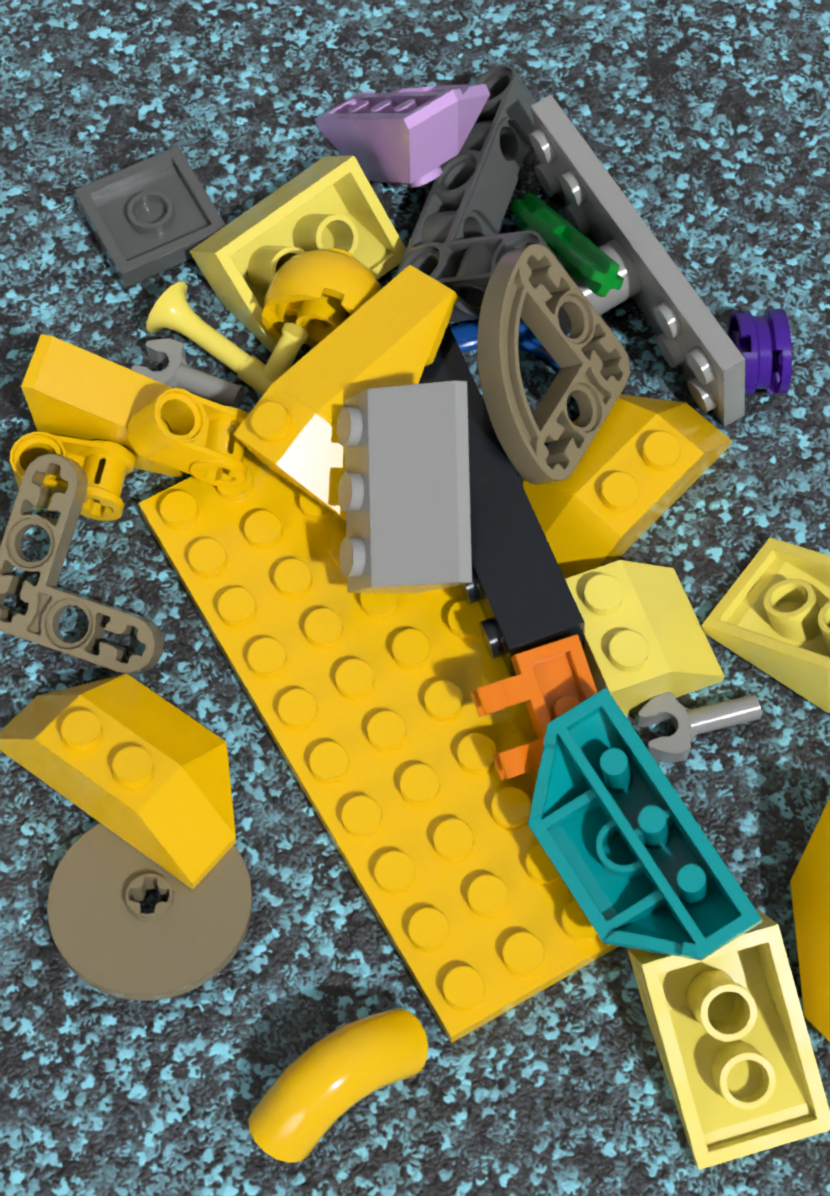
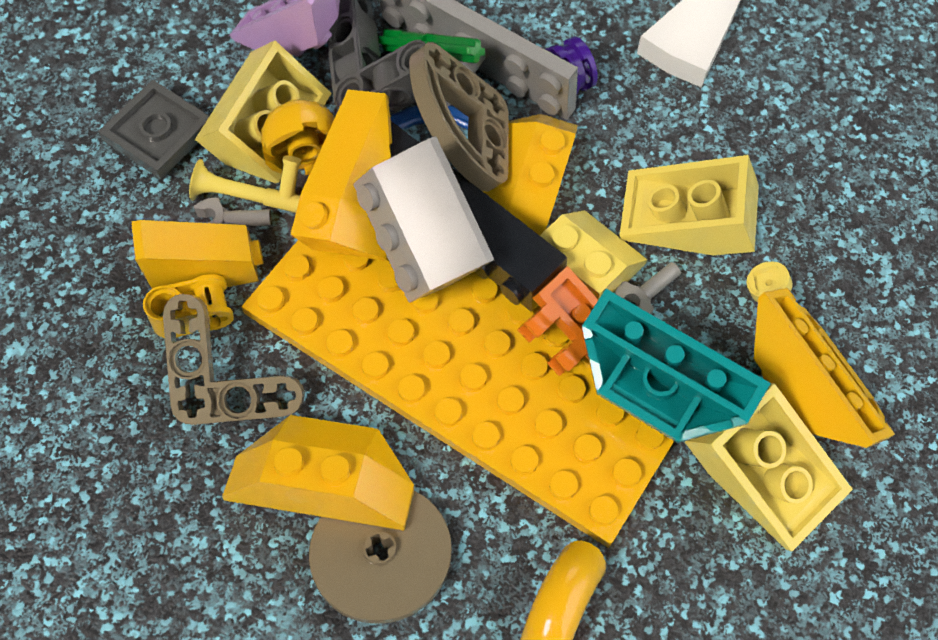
camera: 30 degrees left, 0 degrees up
(199, 440) = (261, 248): yellow piece -> none

